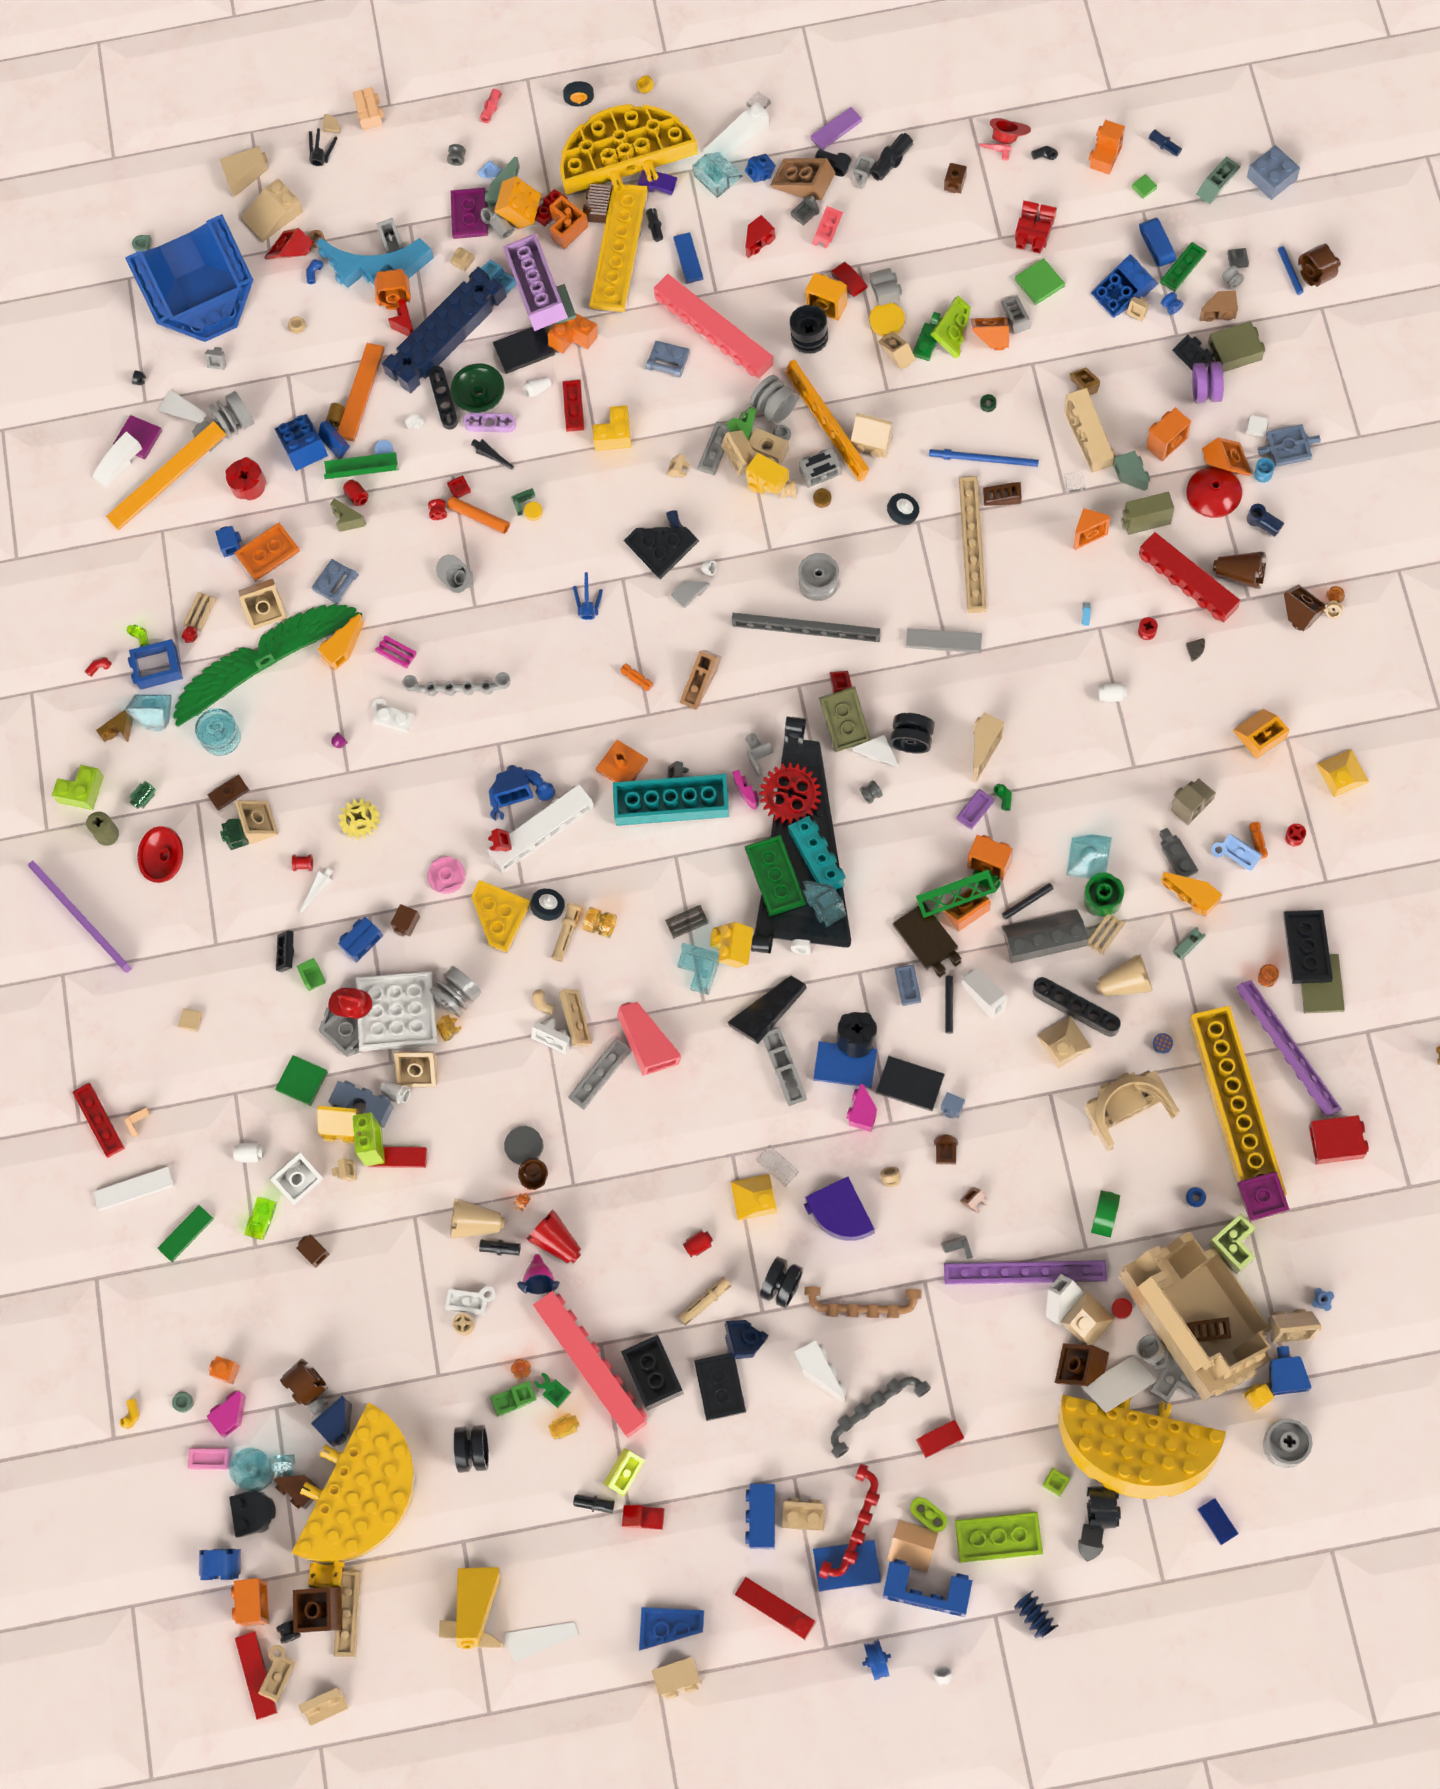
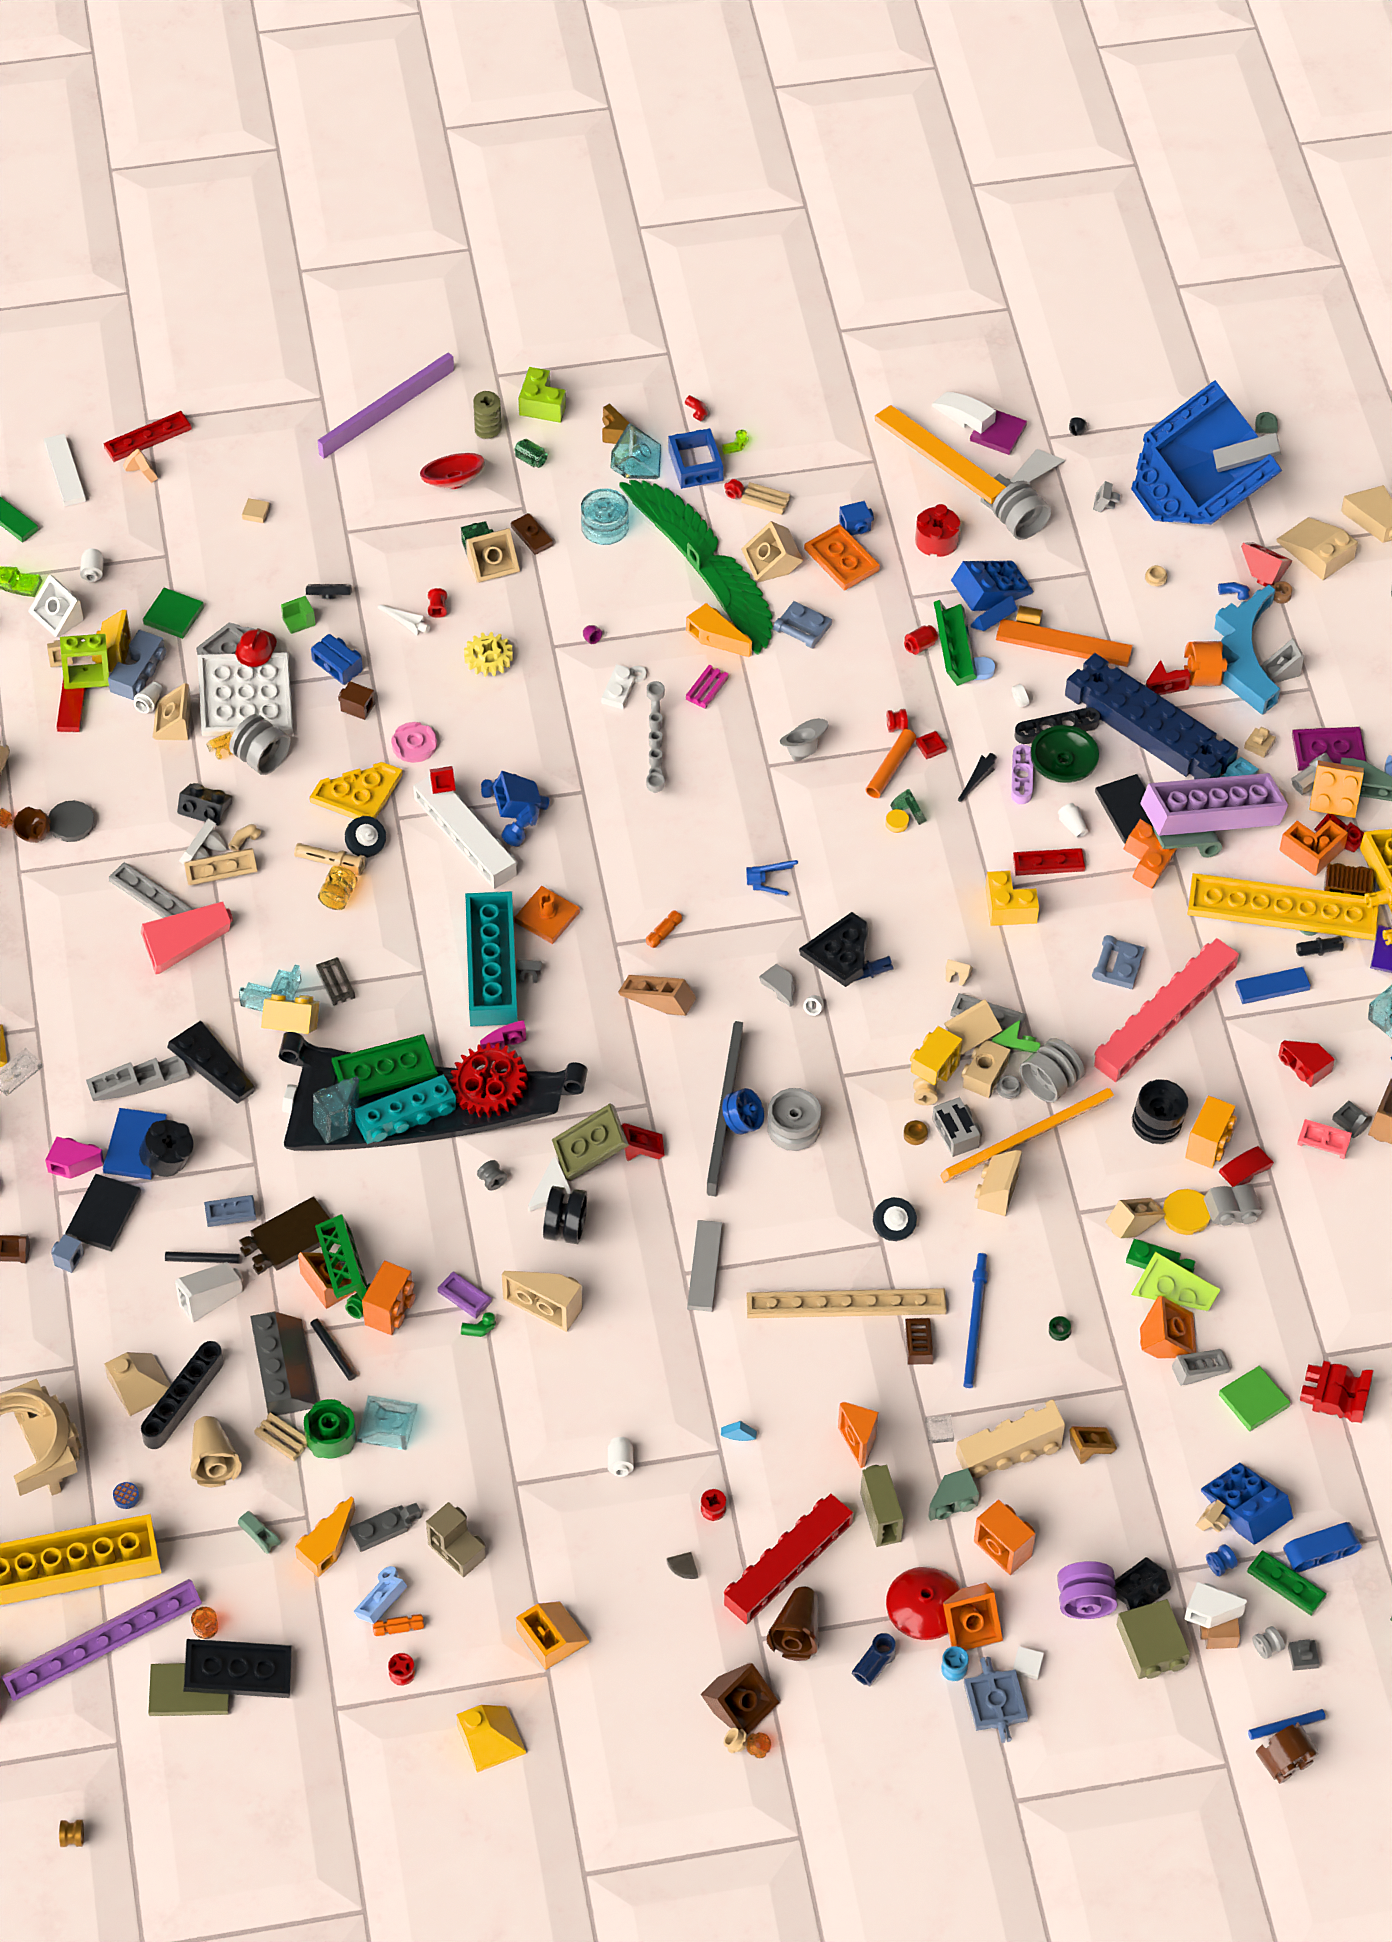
camera: 80 degrees right, 15 degrees down
(181, 252) = (1246, 452): none -> light grey tile
(348, 517) = (887, 632): olive slope -> none
(508, 1036) = (203, 803): none -> black bracket
(757, 751) = (554, 1054): light grey bracket -> none
(813, 611) = (743, 1111): none -> blue wheel
(1220, 302) = (1212, 1606): none -> white slope

